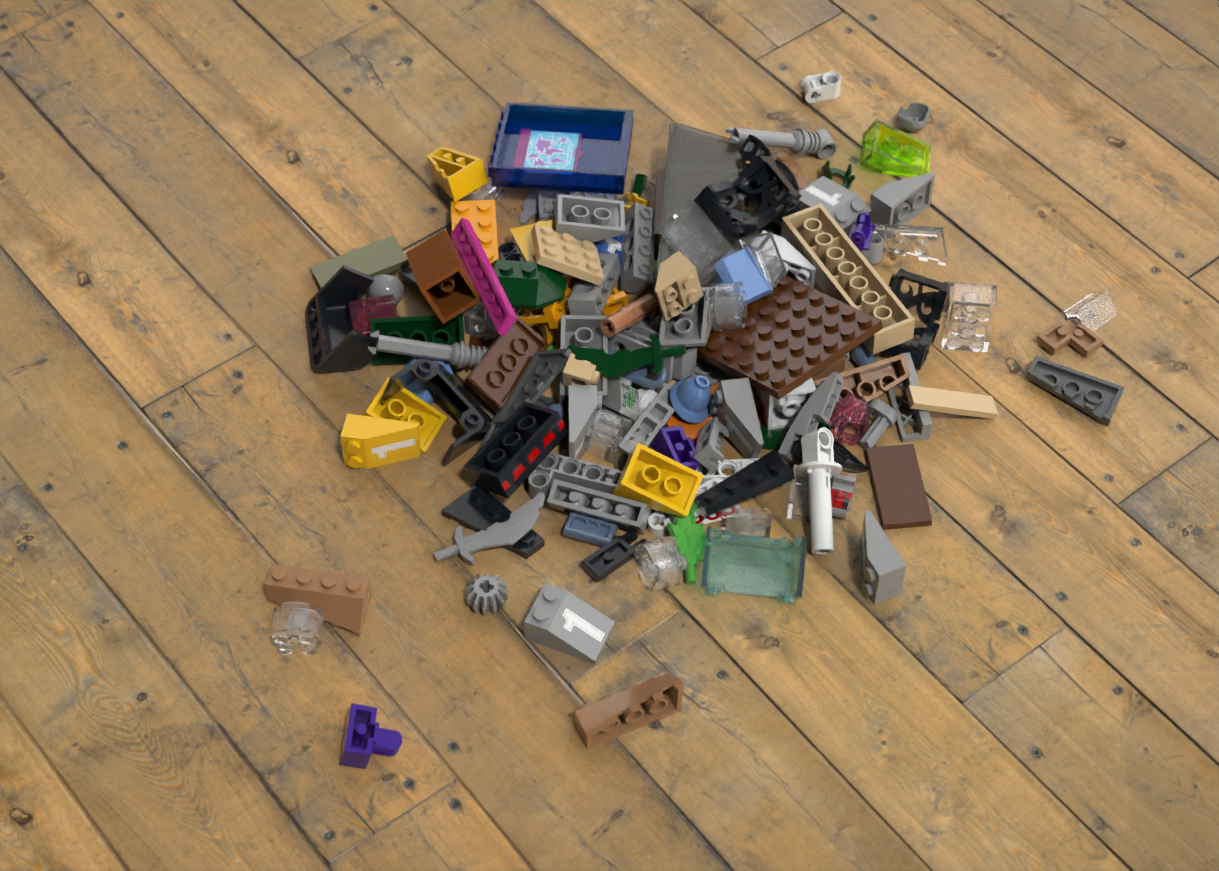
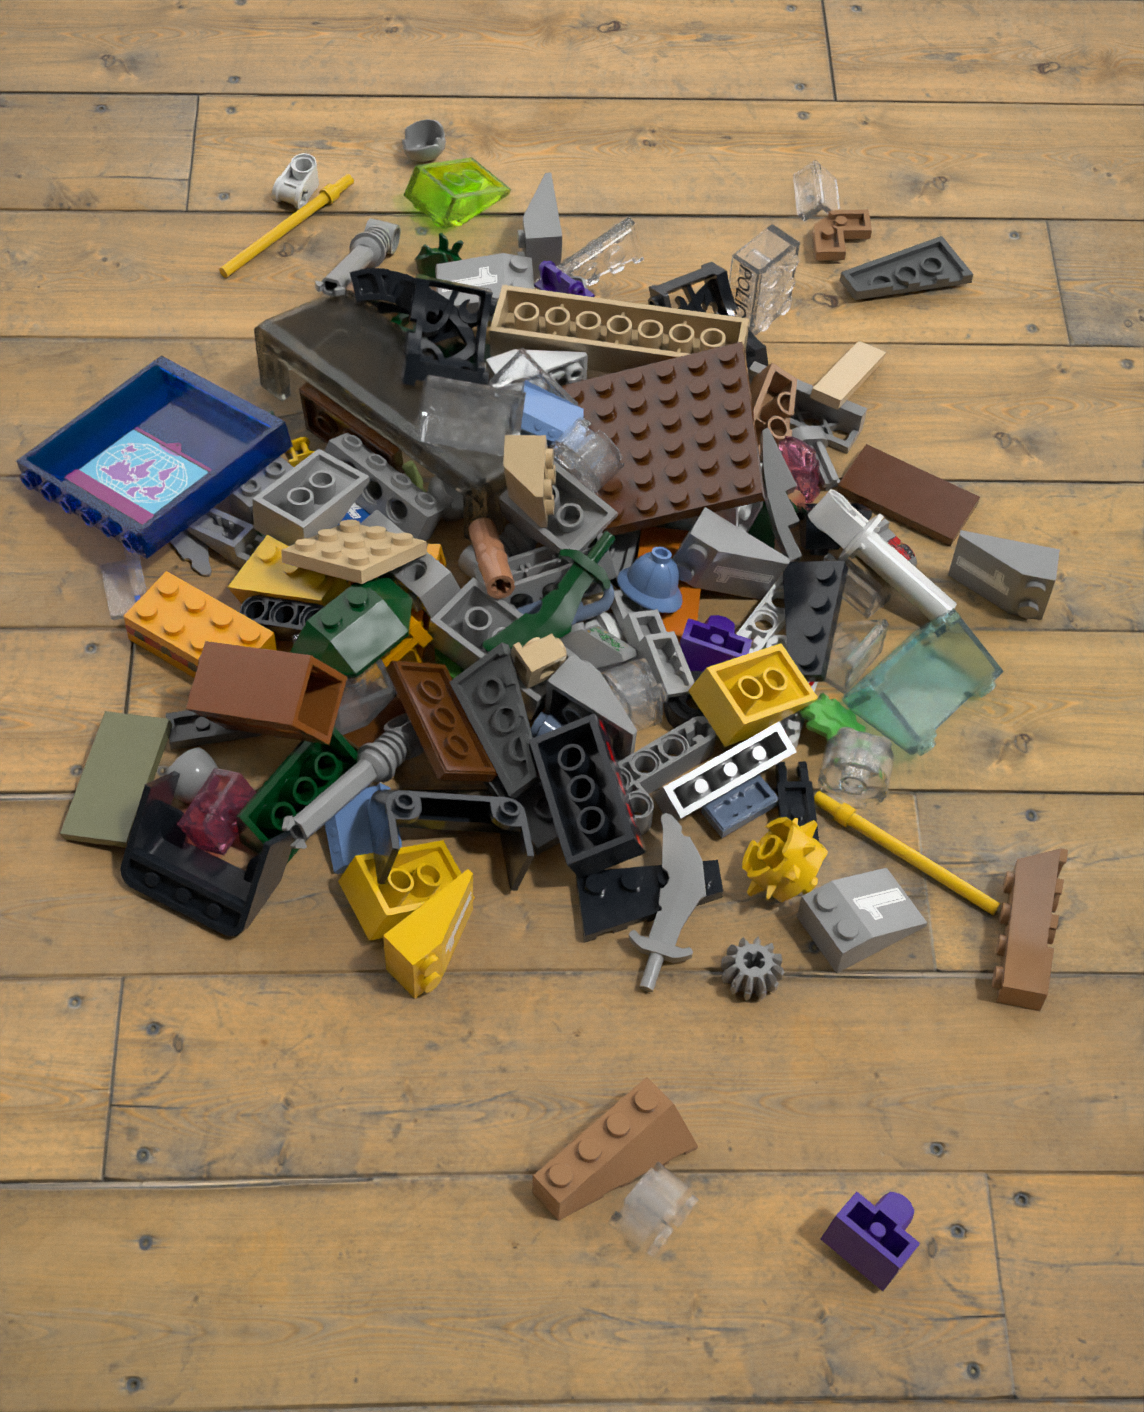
camera: 55 degrees left, 5 degrees up
(456, 172) = (81, 580): yellow wedge -> none
(483, 276) = (344, 654): dark pink tile -> none
(562, 563) = (784, 860): none -> yellow brick
(631, 583) = (846, 815): none -> yellow bar
(709, 444) = (732, 610): light grey hinge -> none
(829, 105) = (327, 195): none -> yellow bar

